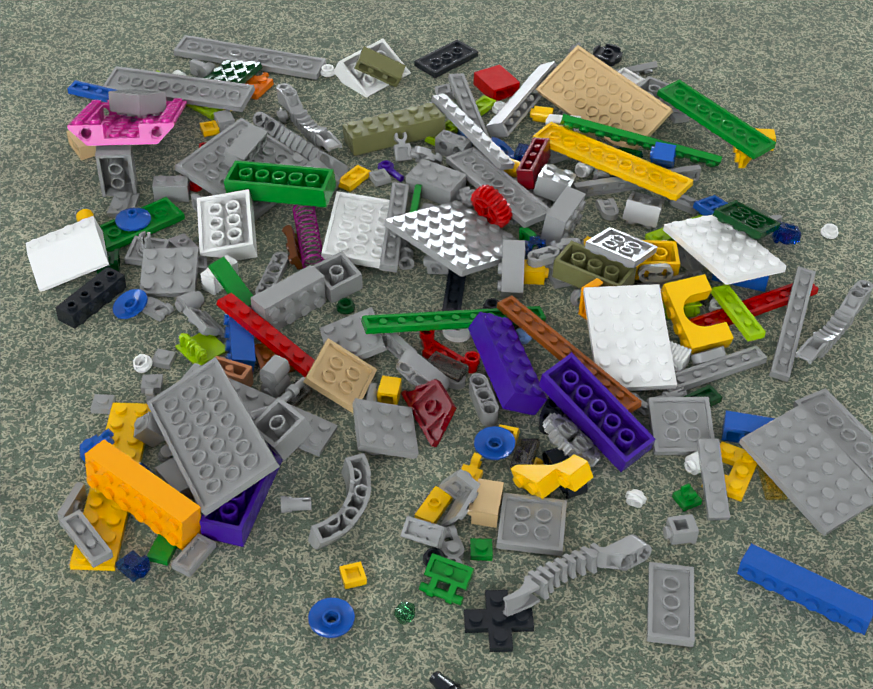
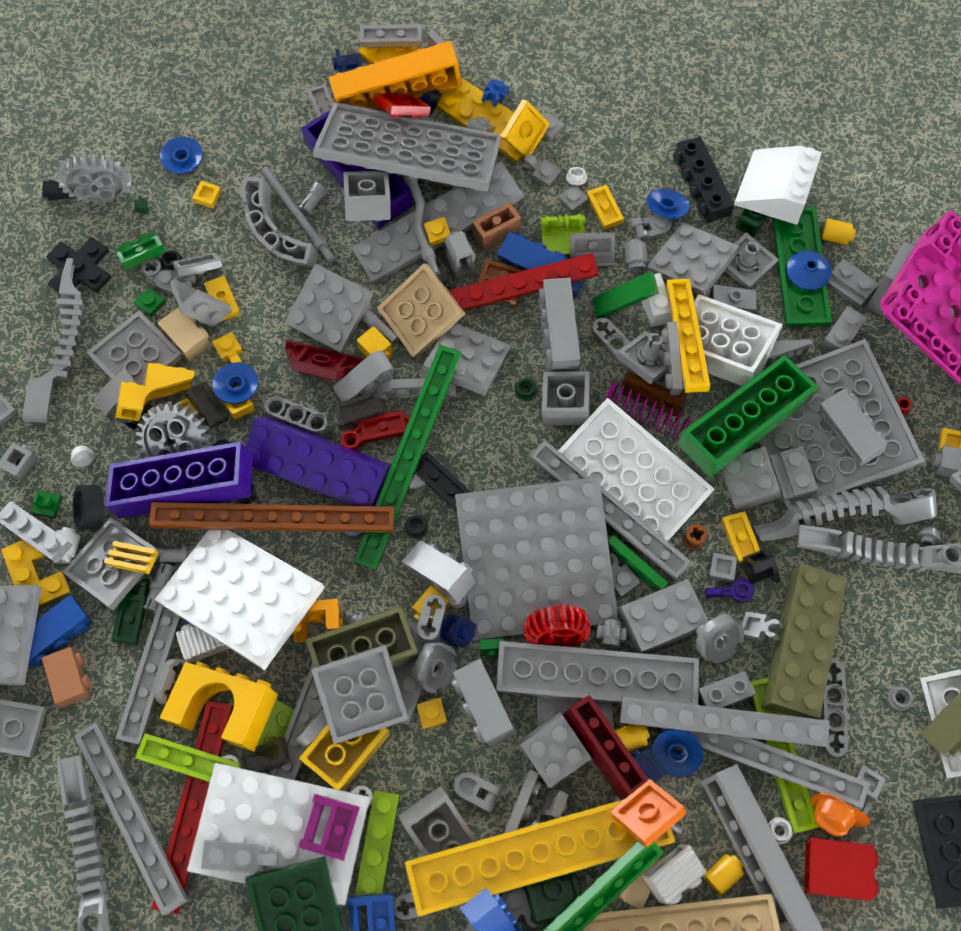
camera: 130 degrees right, 25 degrees up
(127, 395) = (525, 129): none -> yellow tile
(158, 336) = (605, 207): none -> yellow plate
(170, 465) = (401, 104): none -> red plate
(244, 230) = (690, 344): none -> yellow plate
(267, 229) = (672, 358): none -> light grey plate
(267, 393) = (437, 230): none -> yellow plate
(271, 251) = (647, 351): none -> light grey plate
(331, 477) = (318, 242): none -> light grey bar
(365, 158) = (761, 566): none -> black panel
(373, 189) = (698, 531): none -> dark orange bush
(386, 96) = (905, 693): none -> light grey plate
(420, 635) = (94, 179): none -> light grey gear
(476, 86) = (836, 815): none -> orange piece
(551, 122) = (648, 813): none -> orange plate
(567, 506) = (108, 396): none -> light grey slope
(582, 174) = (554, 804): none -> light grey plate
(655, 394) = (112, 562): none -> yellow tile
(655, 456) = (88, 507): none -> black tyre
(696, 221) = (337, 831): none -> magenta plate
(754, 245) = (236, 856): none -> light grey hinge
(767, 400) = (67, 677): none -> nougat brick

